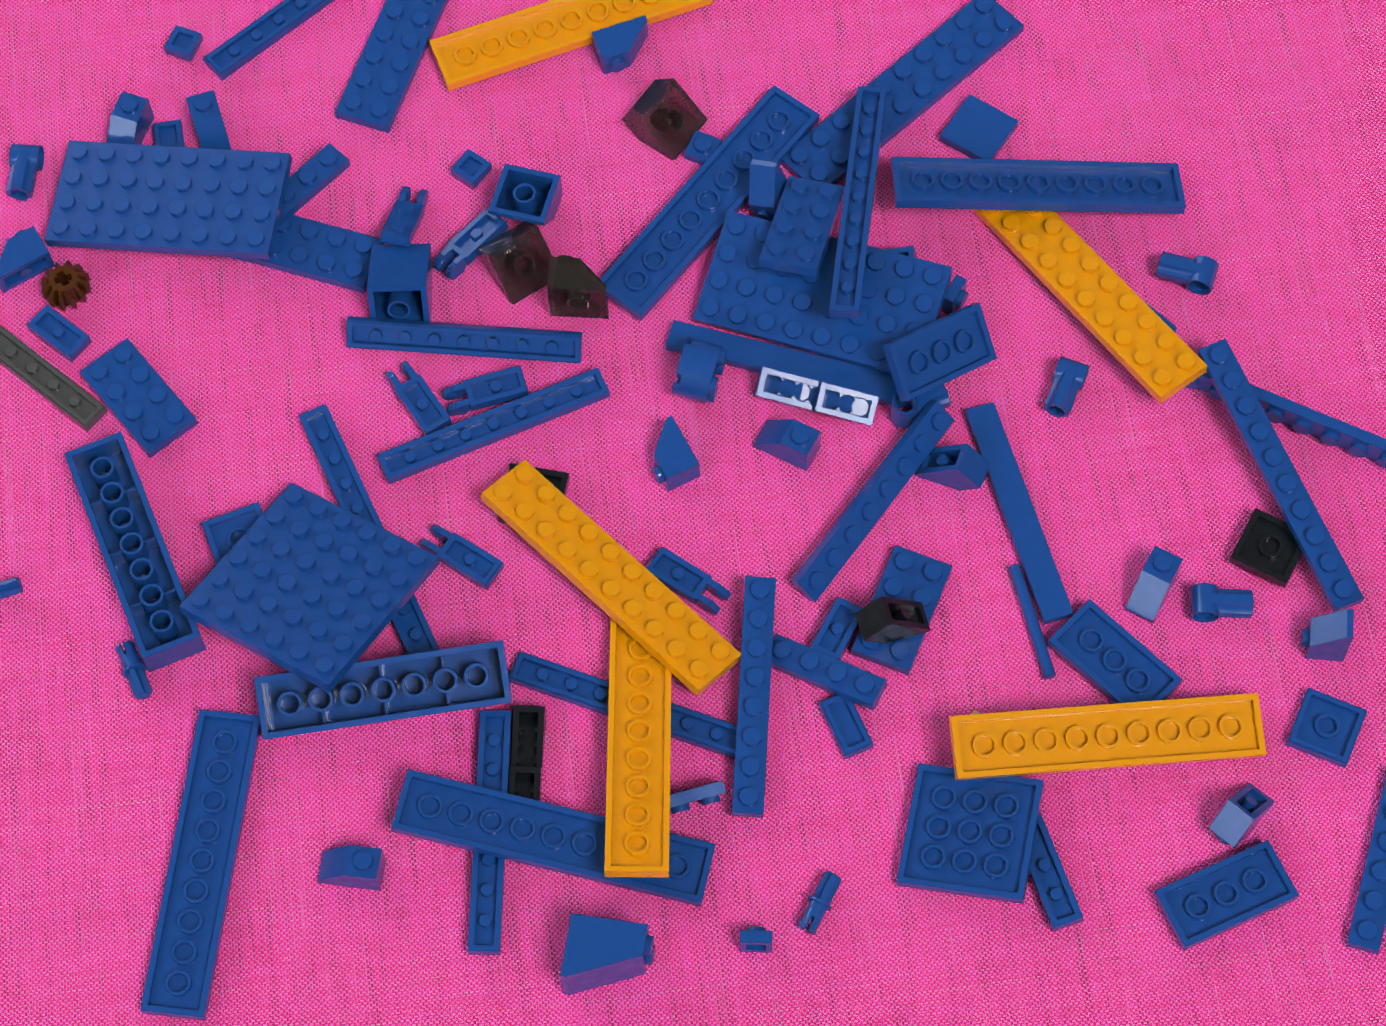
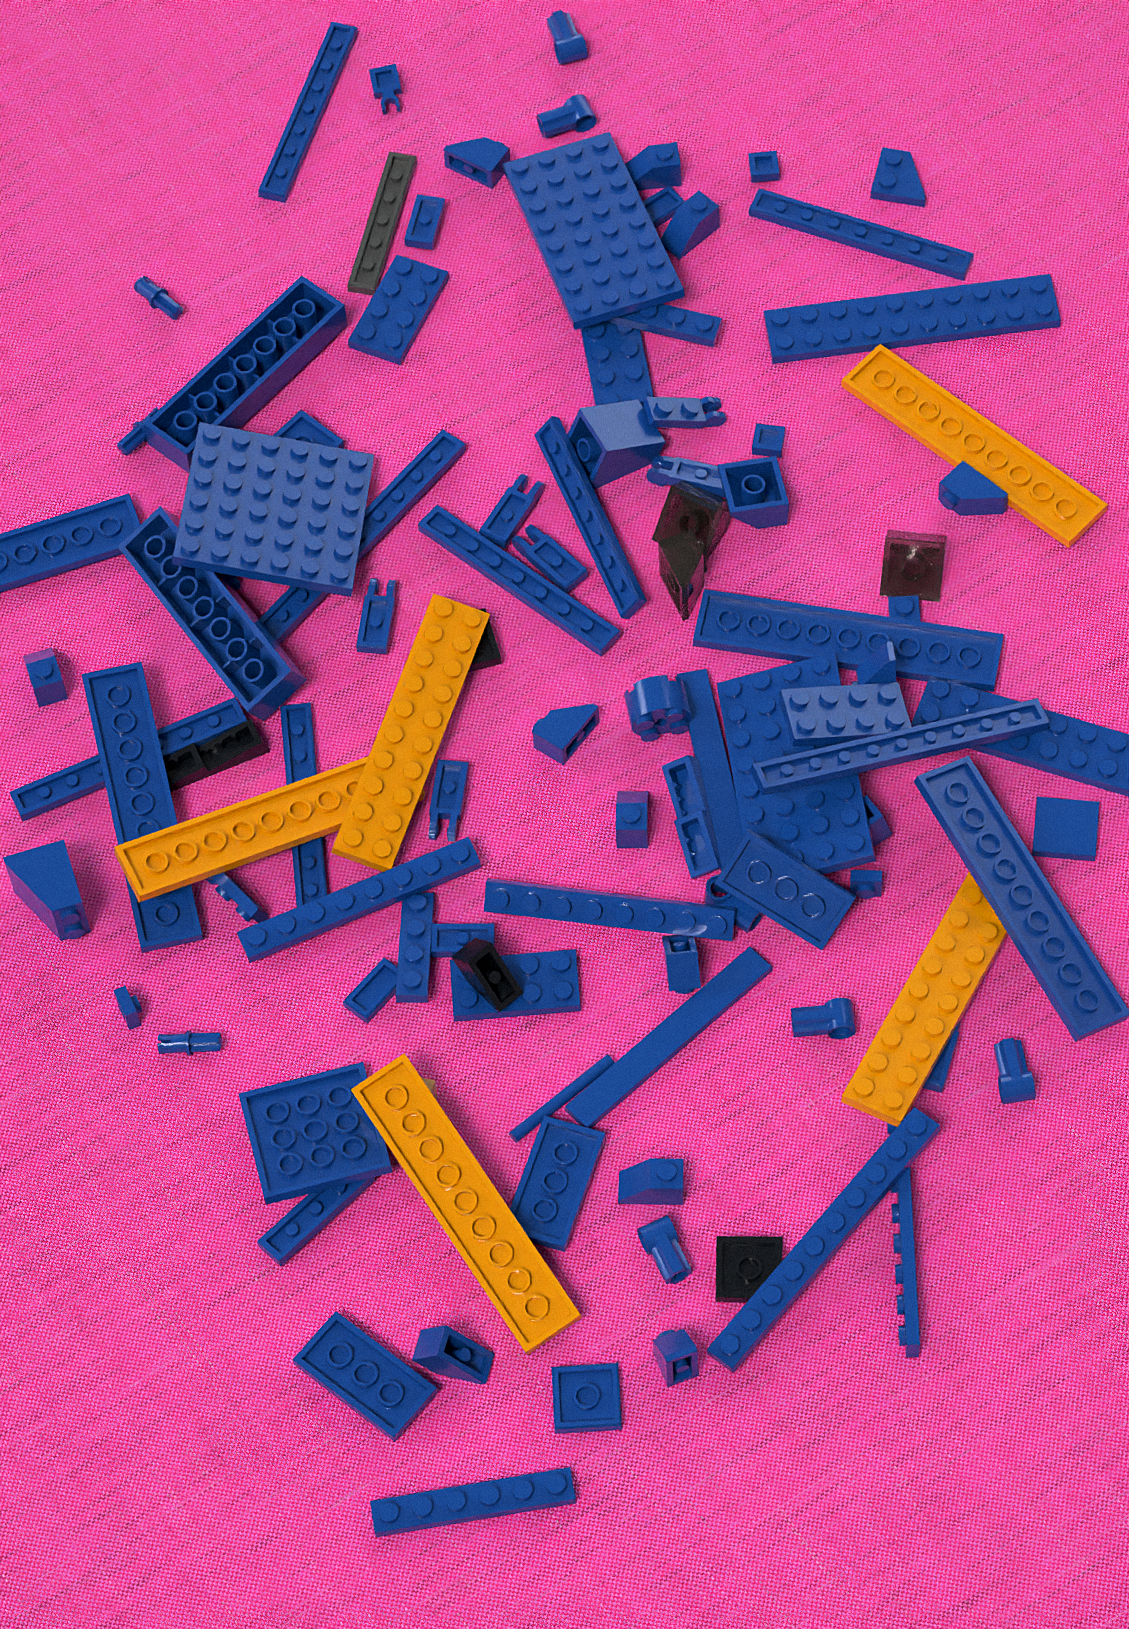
camera: 65 degrees right, 5 degrees down
(65, 285) = (471, 203): reddish brown gear -> none

